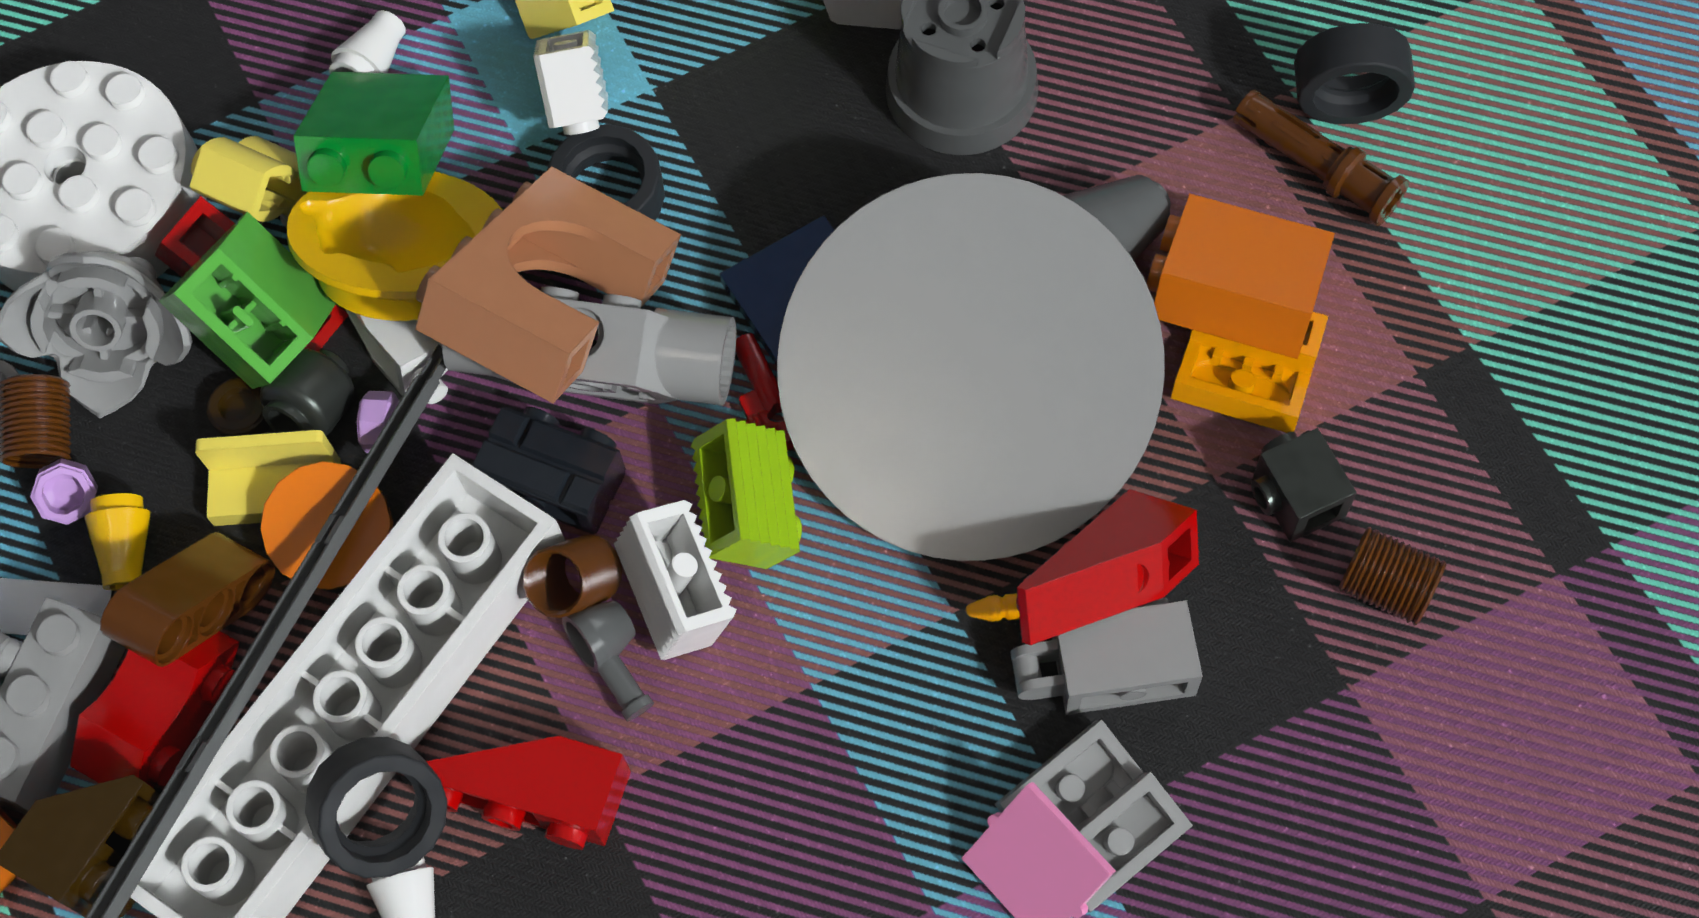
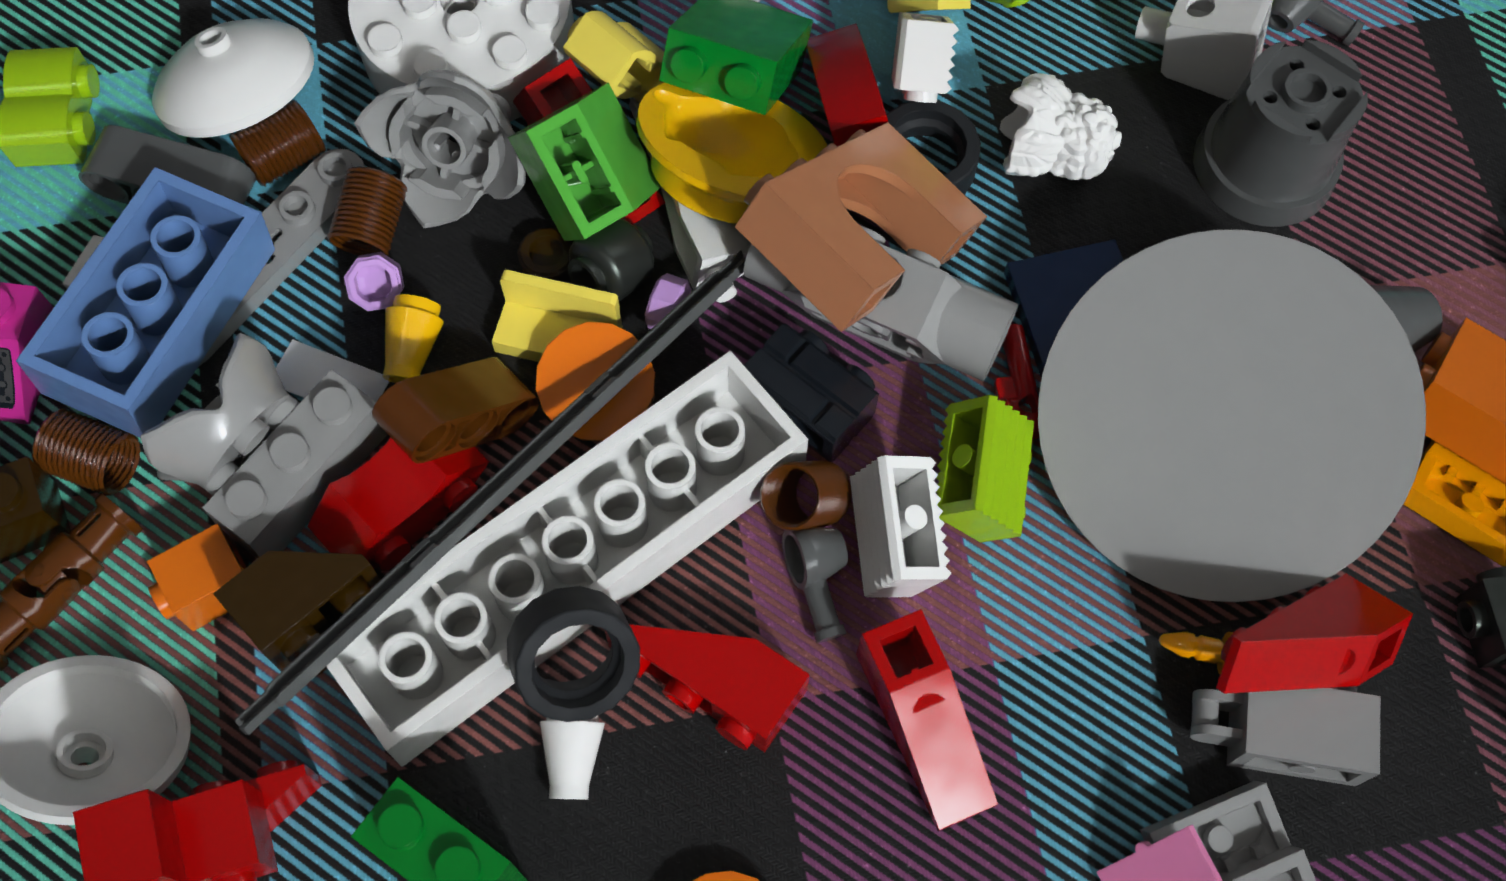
camera: 10 degrees right, 0 degrees up
(500, 133) = (846, 83): none -> red slope
(733, 120) = (1058, 131): none -> white hair
(752, 761) = (927, 718): none -> slope

